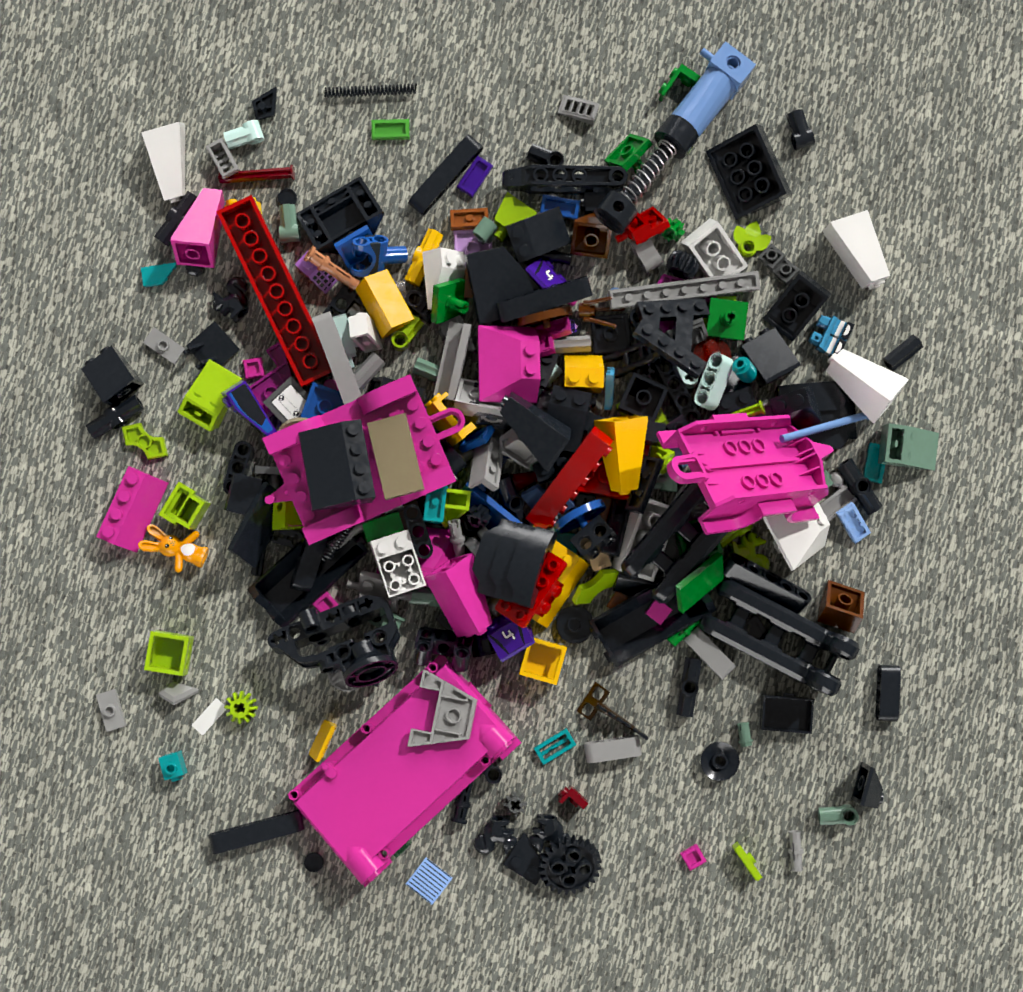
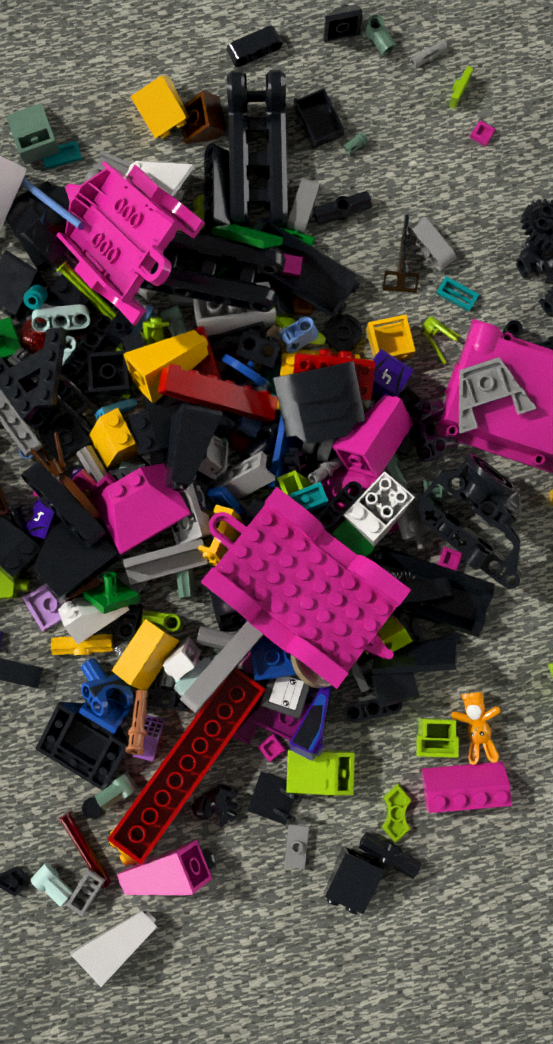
camera: 120 degrees left, 5 degrees down
(157, 274) = (232, 893): teal tile -> none
(174, 218) = (168, 904): black piece -> none
(337, 465) = (323, 601): black slope -> none
(395, 456) = (284, 554): dark tan tile -> none
(467, 218) = (24, 621): dark orange plate -> none
(485, 230) = (26, 596): sand green piece -> none
(515, 809) = (521, 299): dark grey gear -> none
(536, 707) = (433, 327): none -> lime plant
(576, 798) = (490, 257): dark red bracket -> none
(587, 575) = (300, 334): none -> medium blue piece
(649, 473) = (203, 325): black tile -> none
(726, 768) = (390, 143): black dish -> none
(852, 477) = (88, 155): black piece -> none
(853, 522) = (123, 145): light blue plate -> none
(870, 574) = (160, 107): none -> yellow slope

